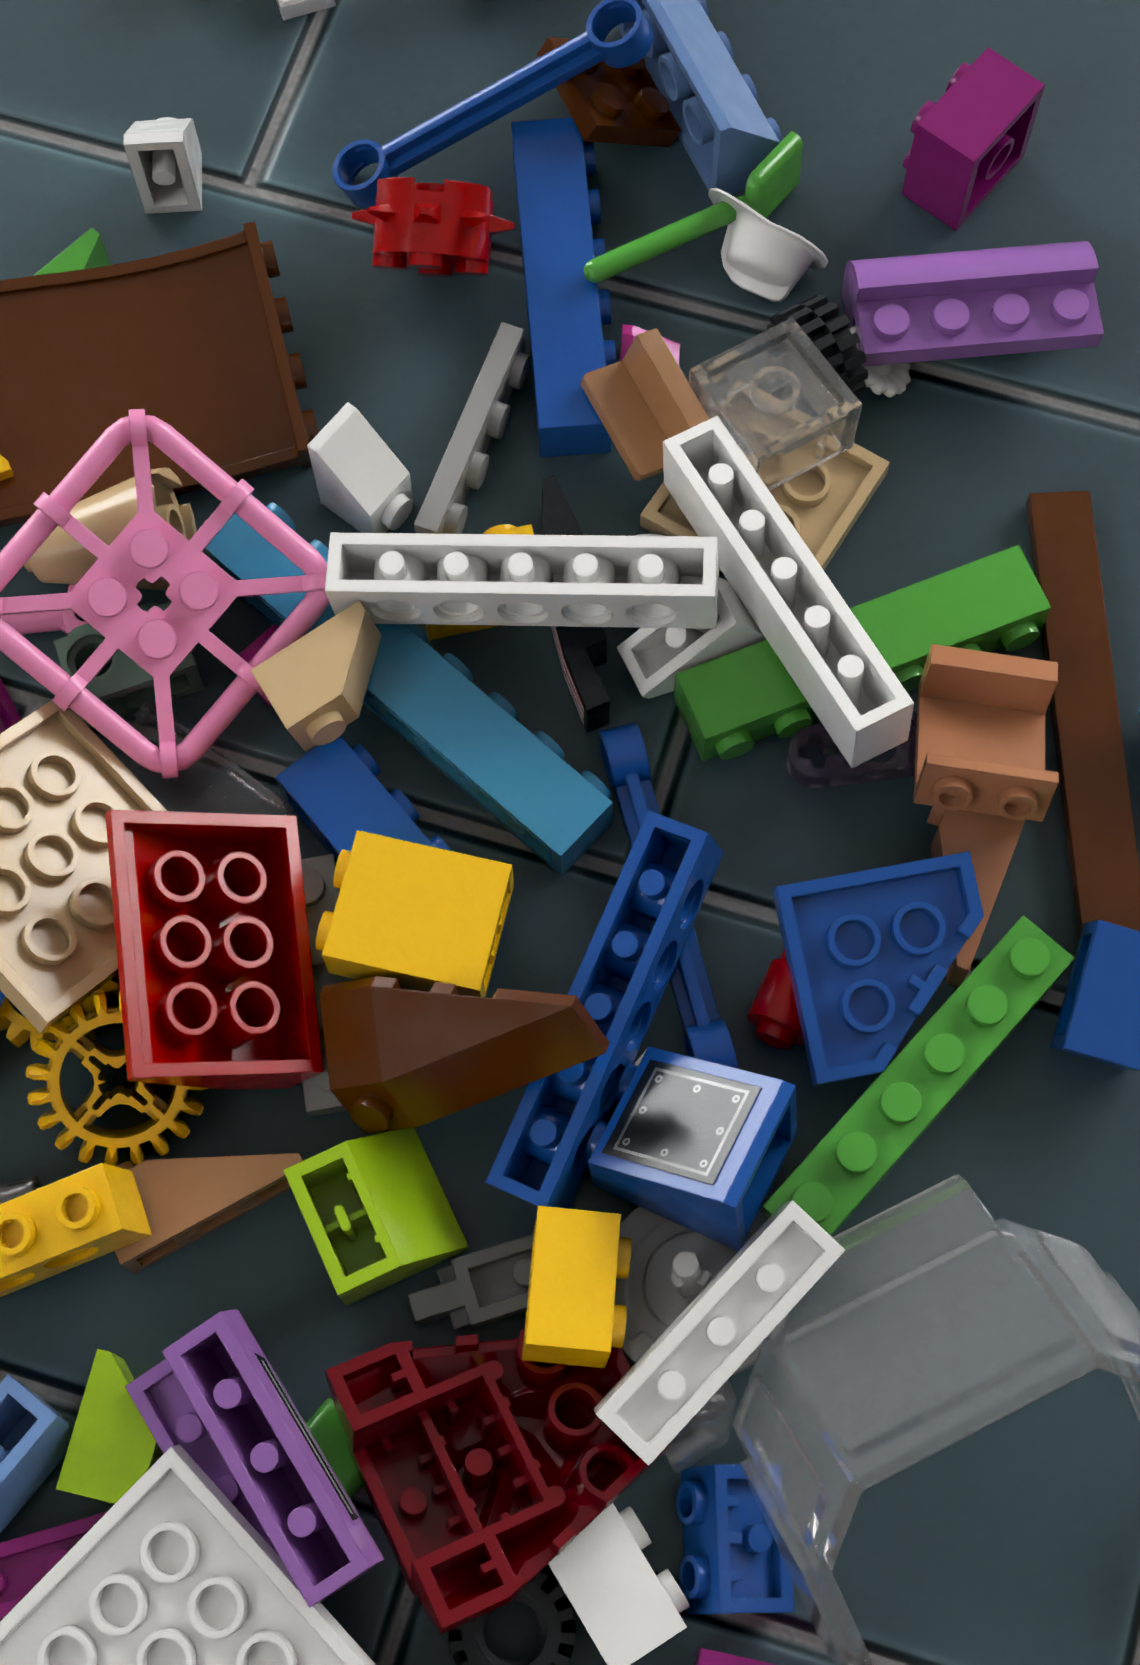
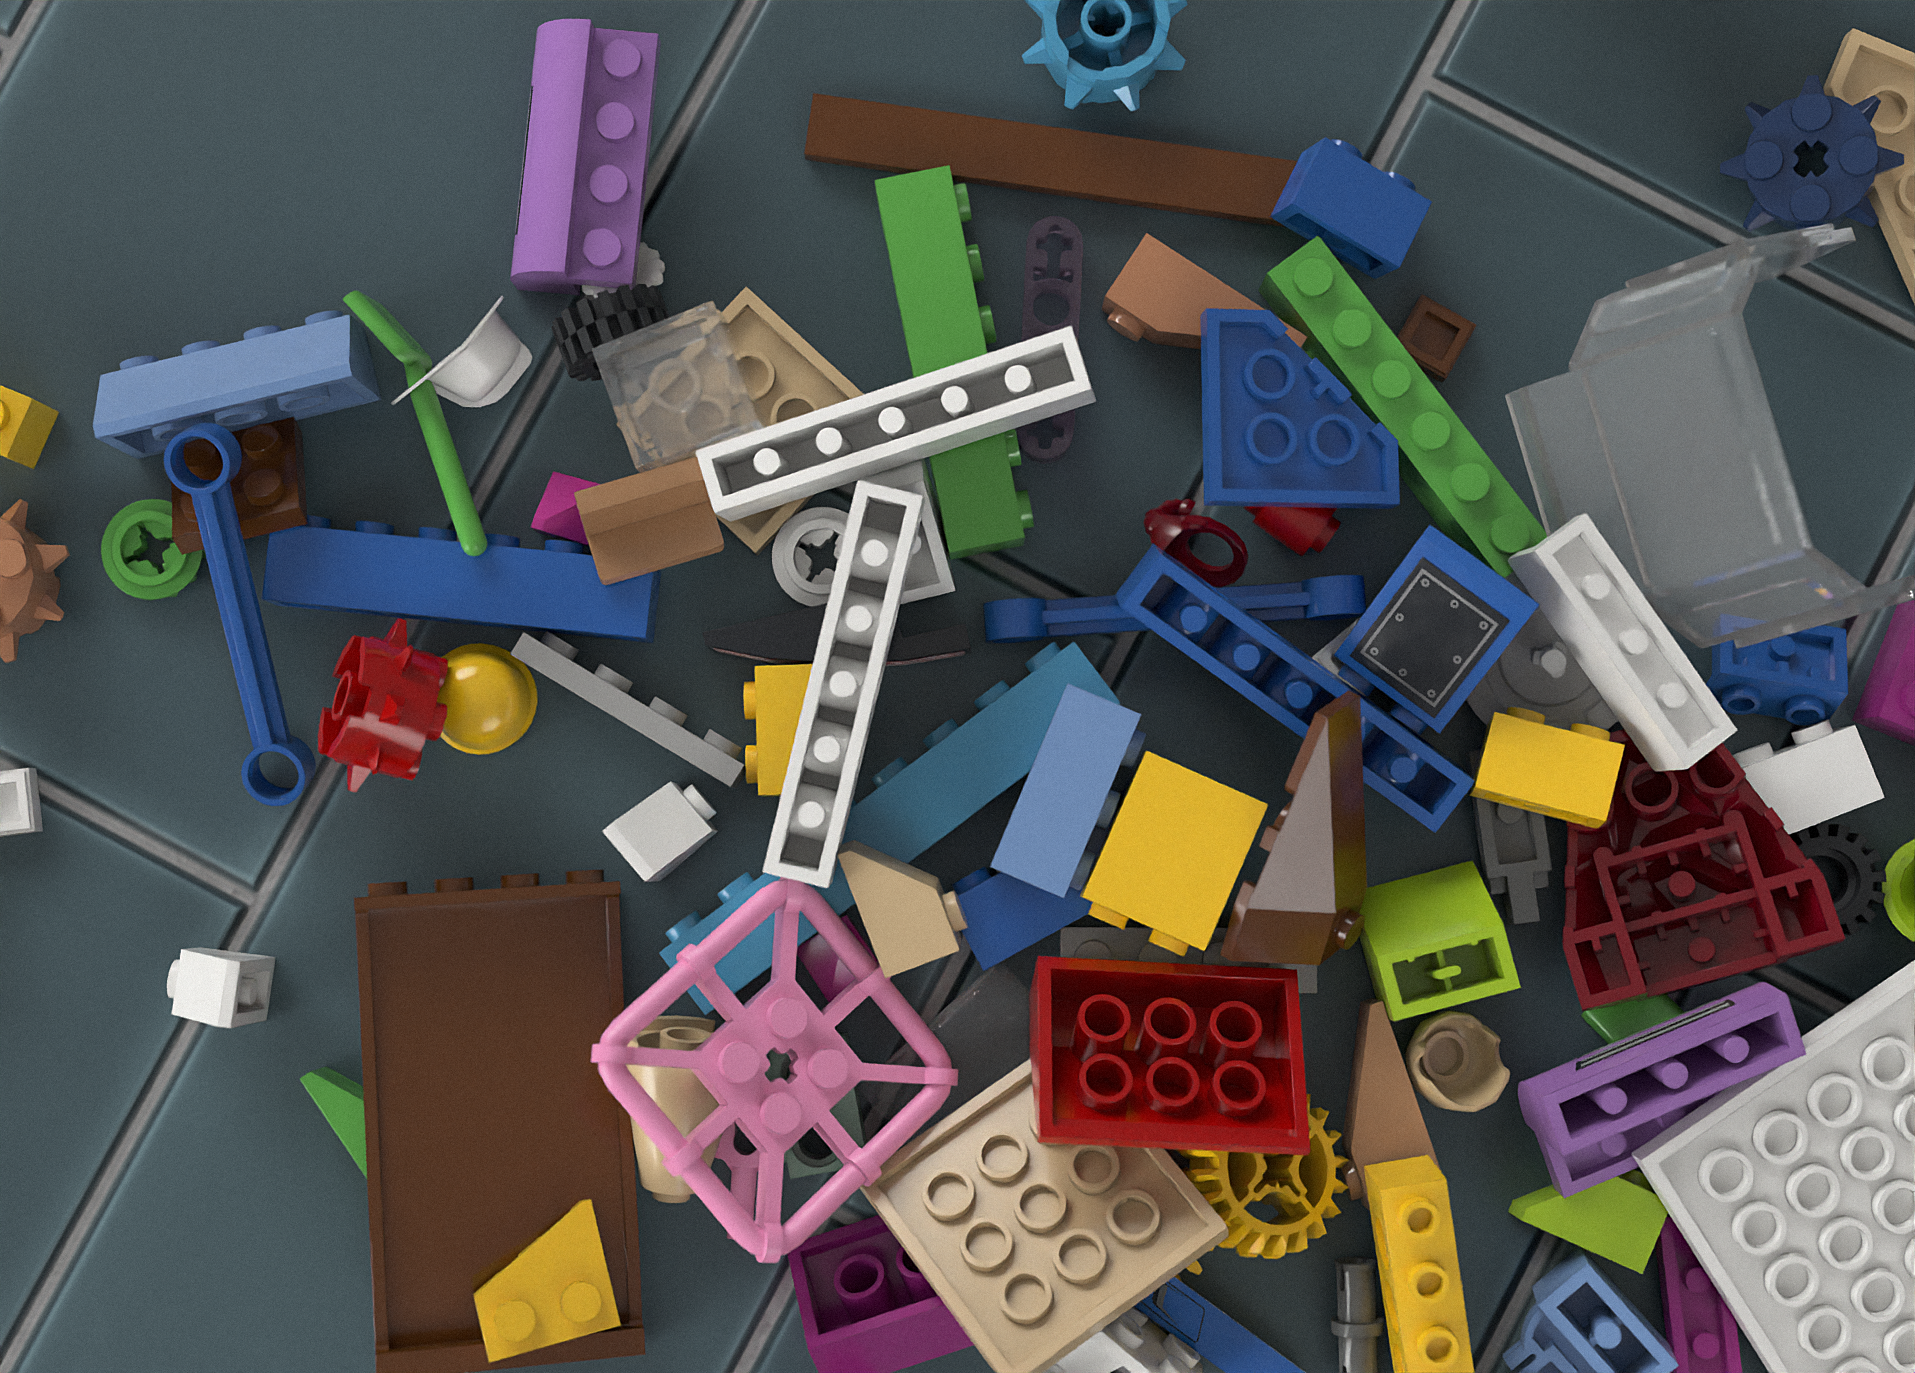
camera: 80 degrees left, 15 degrees up
(255, 1260) = (1456, 1062): none -> tan hair
(458, 321) = (487, 699): none -> yellow helmet
(461, 806) = (1069, 792): none -> medium blue brick
(532, 27) = (125, 541): none -> bright green gear
(736, 885) = (1171, 528): none -> dark red piece
(970, 137) = (385, 111): magenta brick -> none
(984, 733) = (1079, 266): nougat panel -> none
(1003, 1114) = (1434, 337): none -> reddish brown tile

